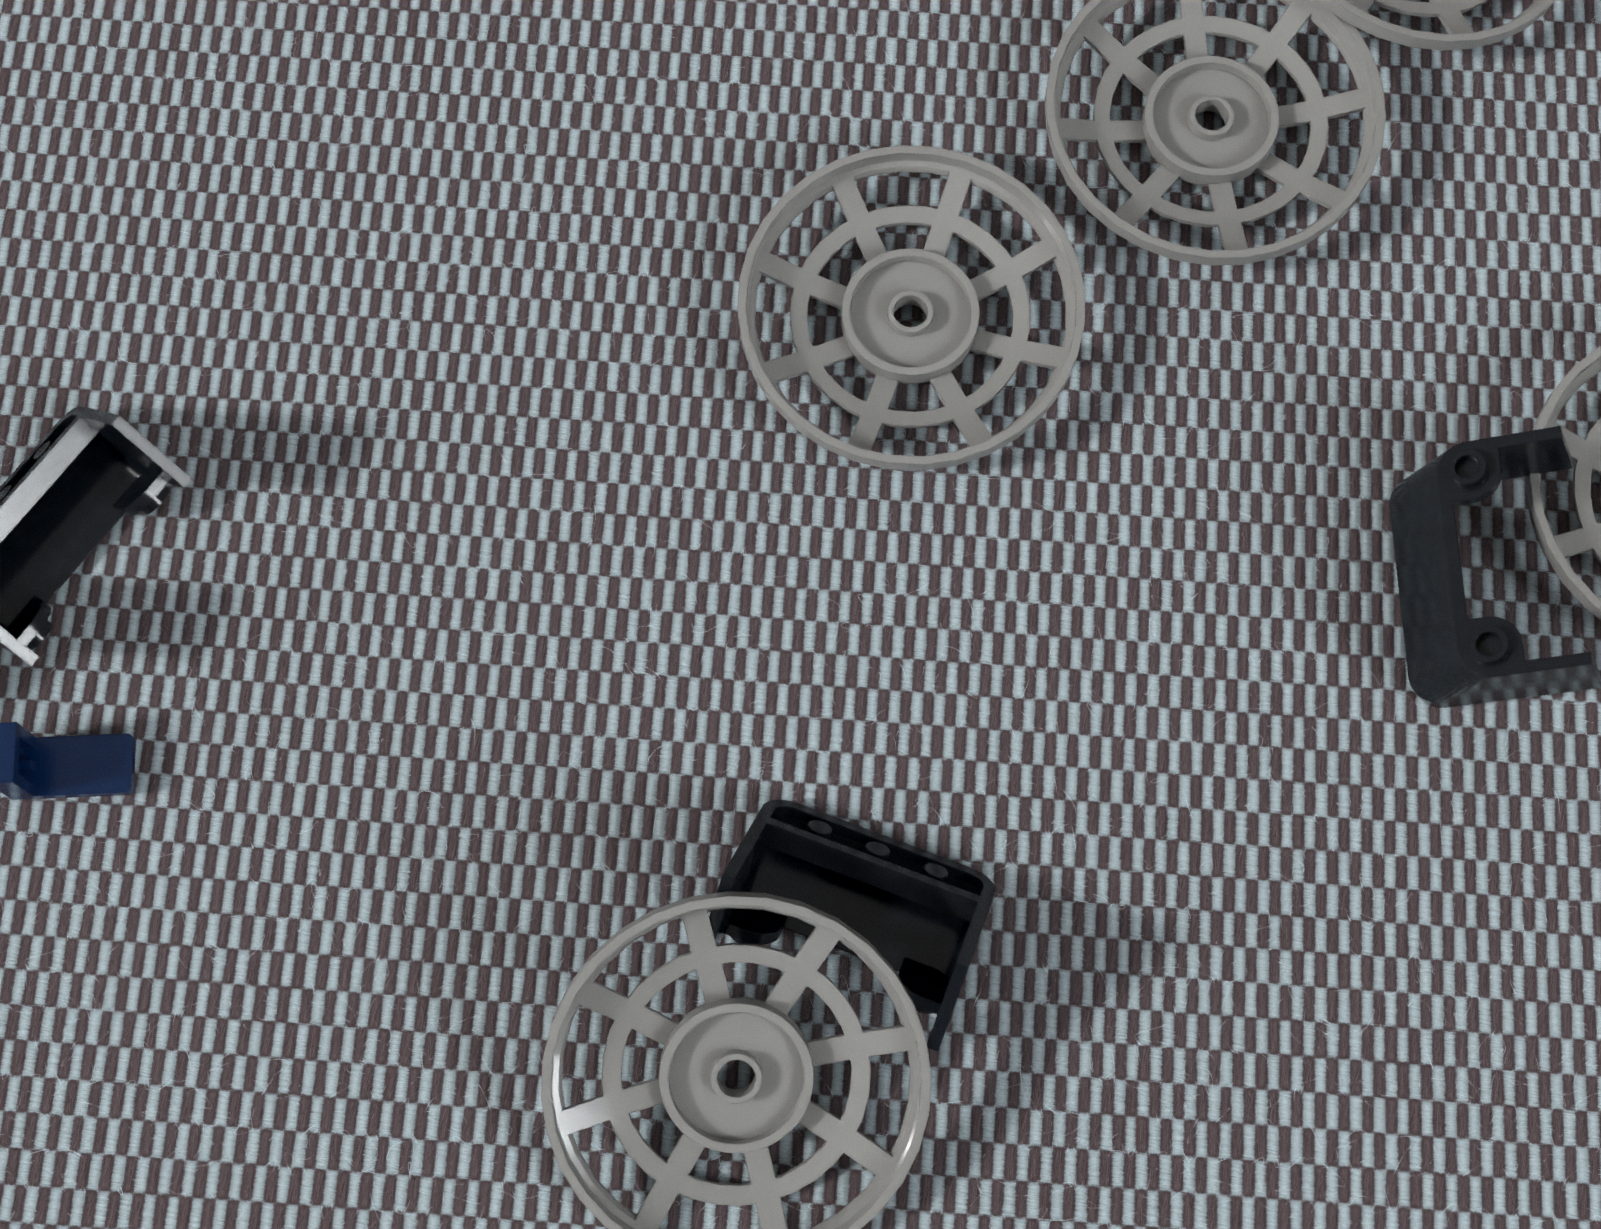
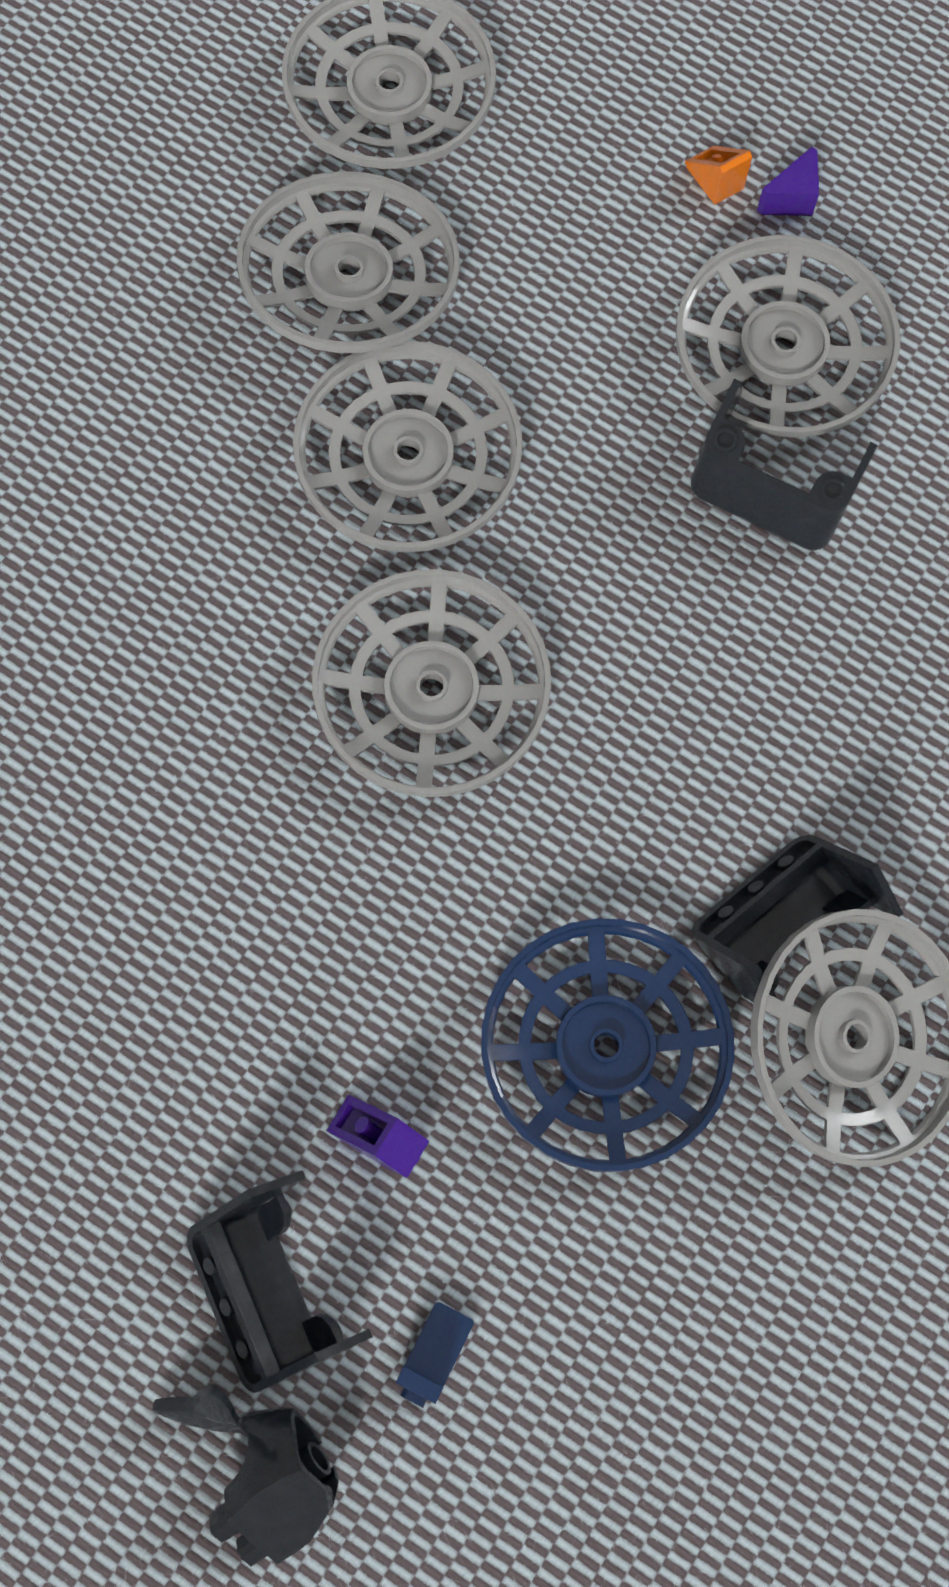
camera: 65 degrees left, 0 degrees up
(296, 559) = (378, 1135): none -> dark purple slope
(533, 736) = (626, 1025): none -> dark blue dish

